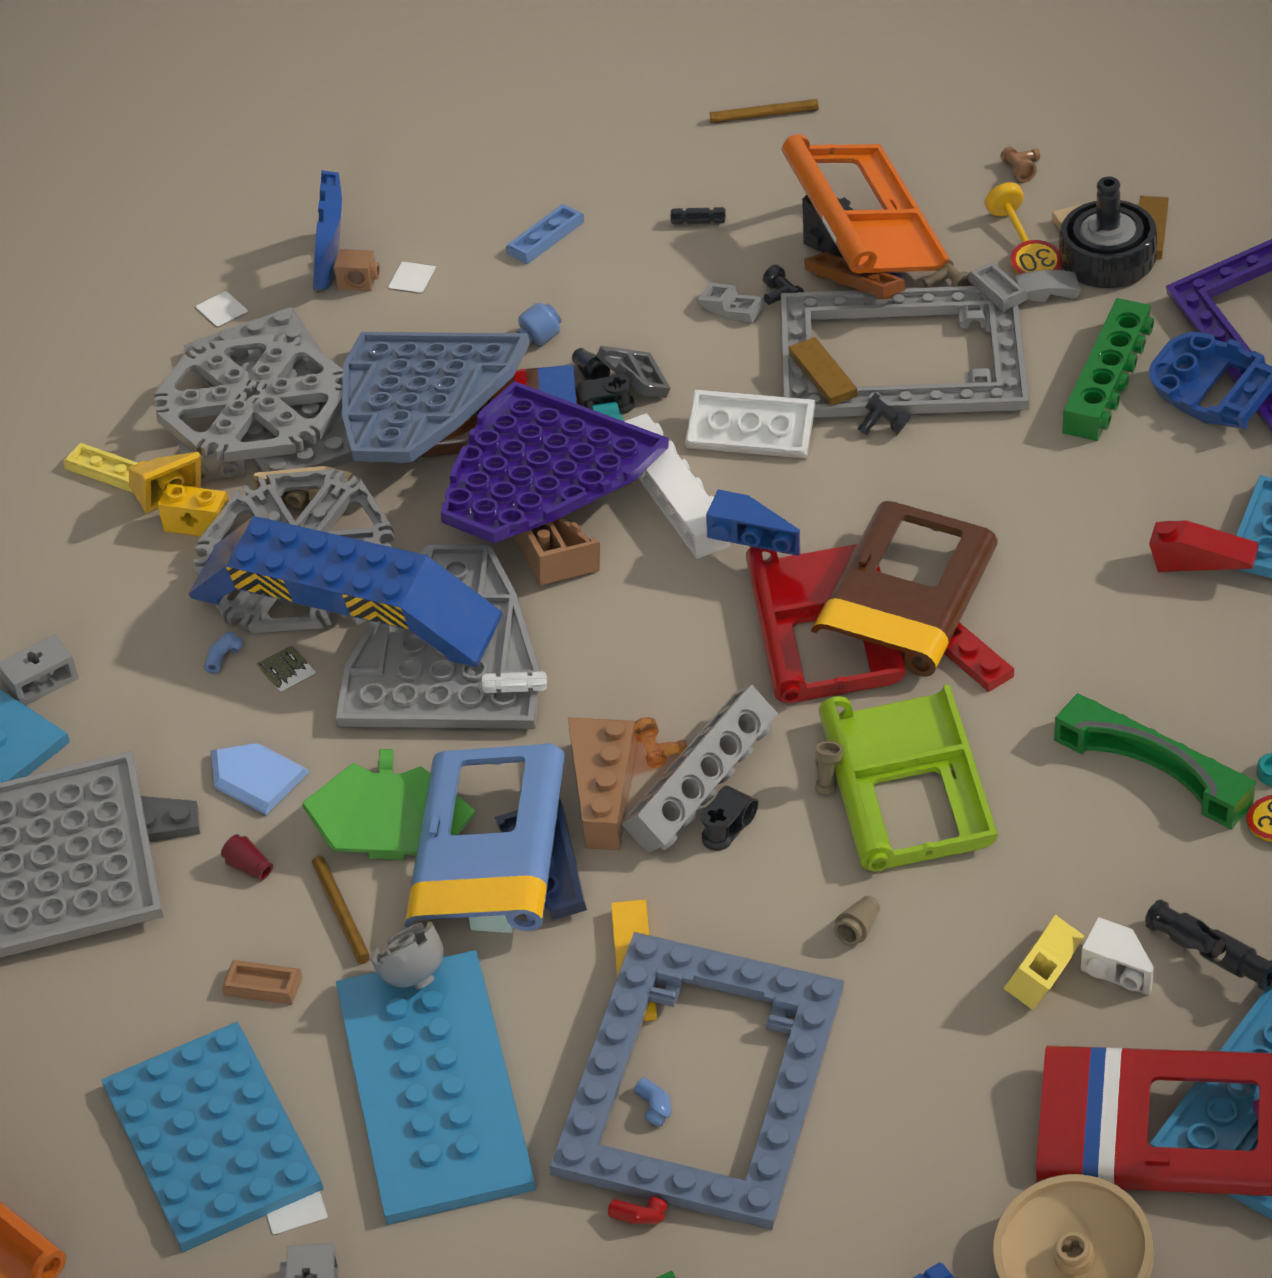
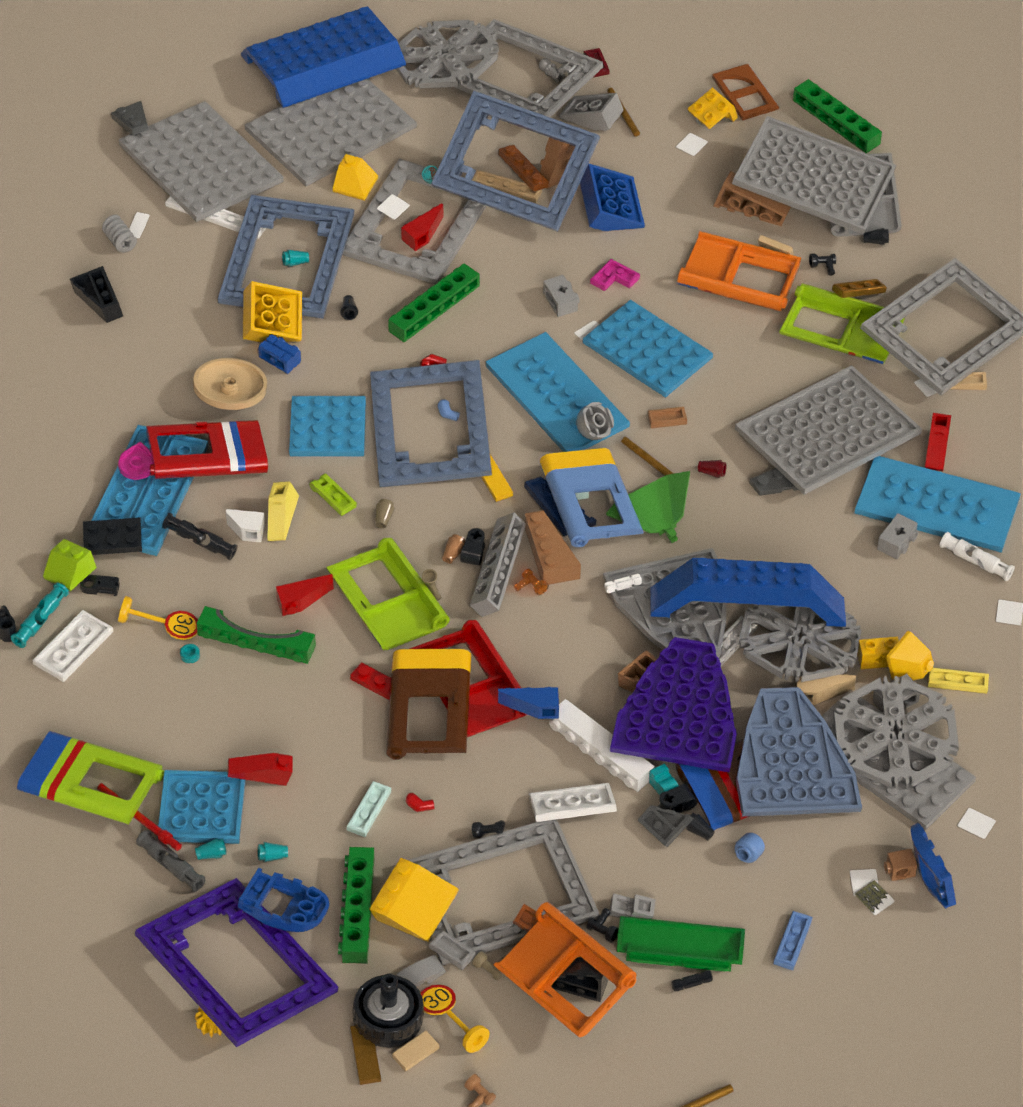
camera: 155 degrees right, 5 degrees up
(255, 775) = (740, 517): light blue tile -> none
(411, 257) = (875, 897): none -> sticker
(685, 254) = (680, 943): none -> green slope
(760, 828) = (453, 548): none -> medium nougat cone
(823, 371) = (541, 846): pearl gold tile -> none
(898, 1133) = (327, 426): none -> dark azure plate
(937, 980) = (333, 494): none -> lime plate
(971, 473) = (417, 804): none -> red arm
(1033, 343) = (413, 900): none -> yellow slope
(1048, 488) = (369, 809): none -> light aqua tile
(1056, 807) = (301, 594): none -> red slope
(1213, 456) = (271, 851): none -> teal cone

